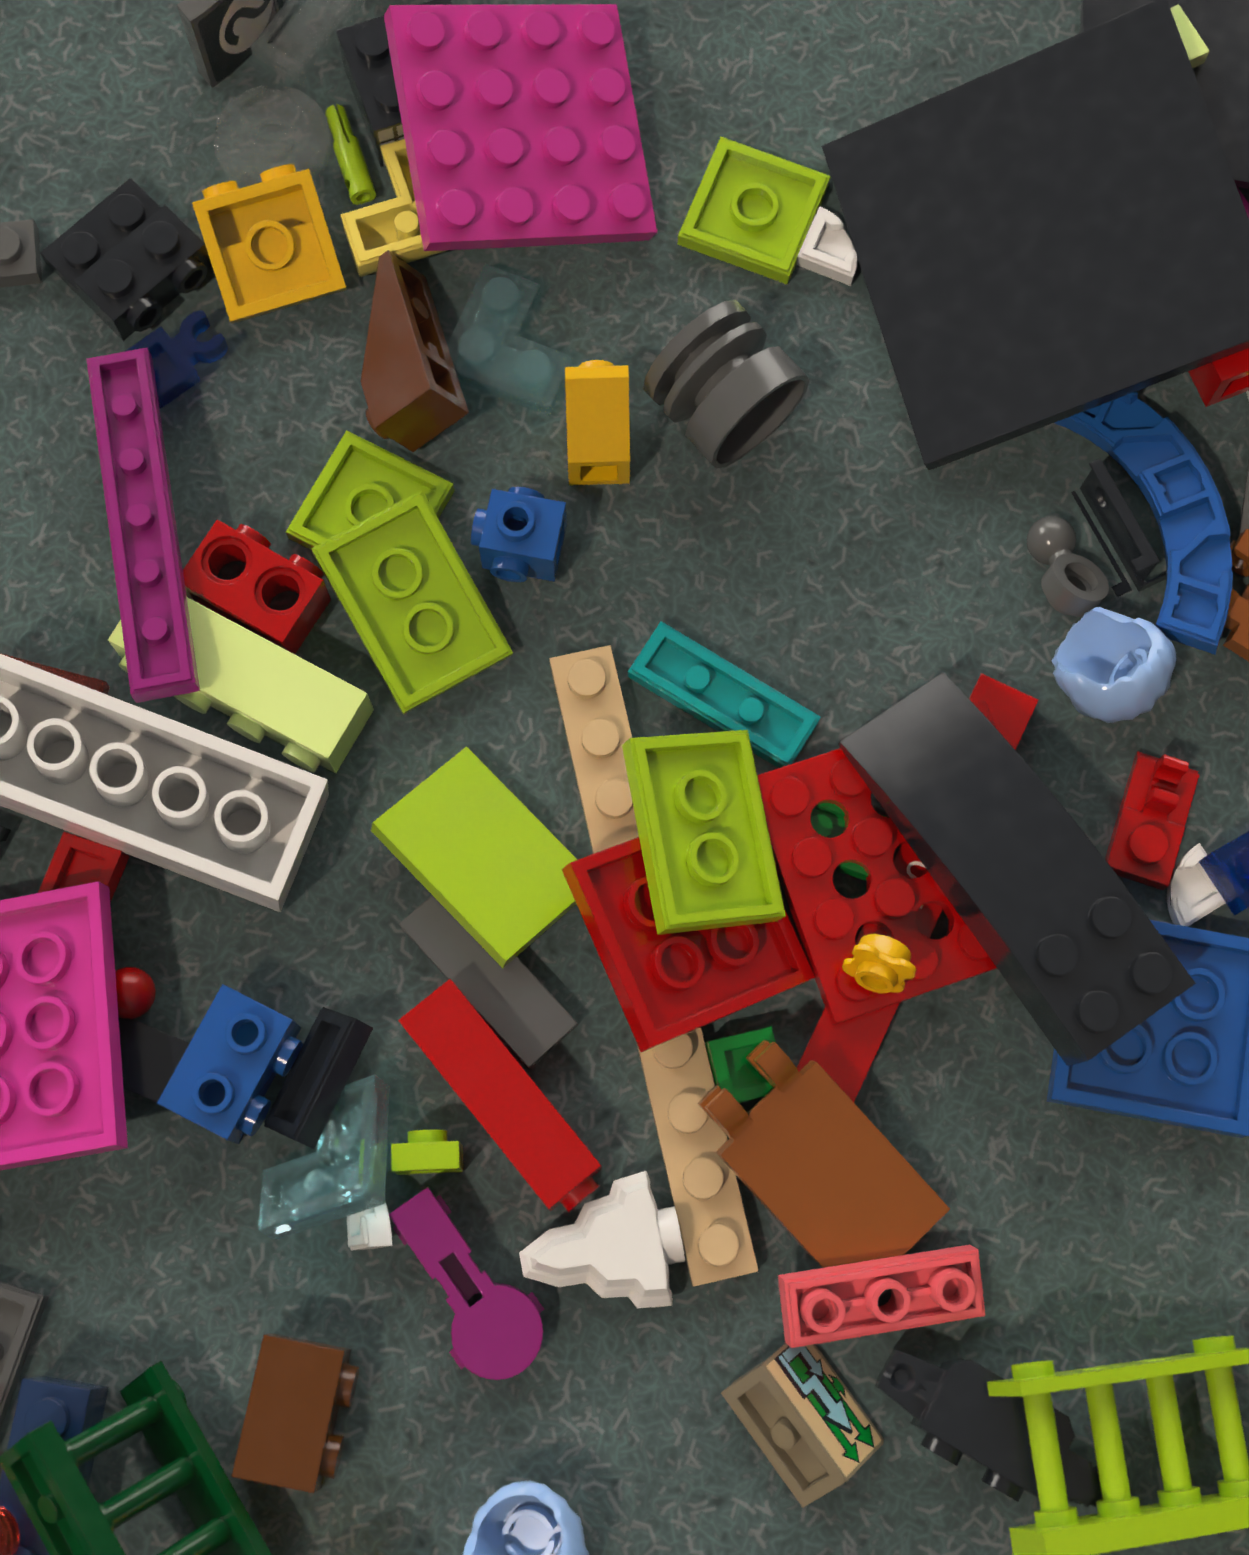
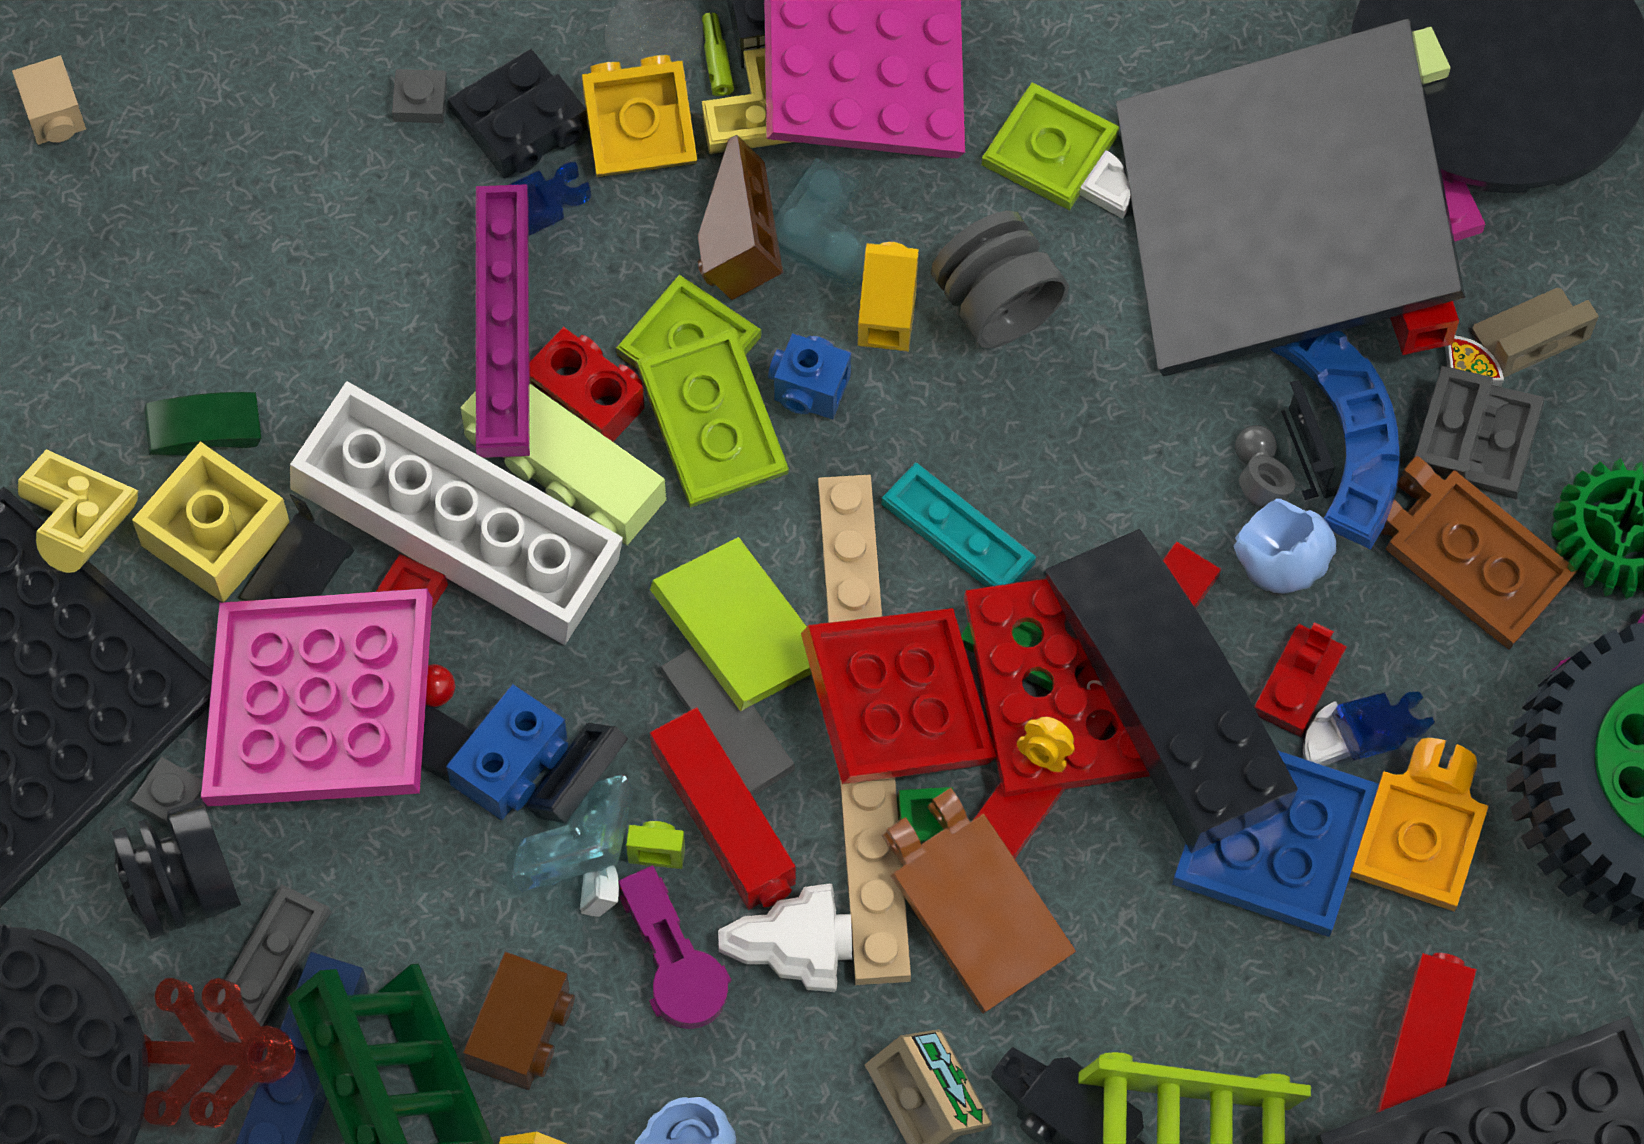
camera: 10 degrees right, 10 degrees down
(702, 831) = (921, 623): lime tile -> none
(844, 1298) = (975, 1007): coral tile -> none

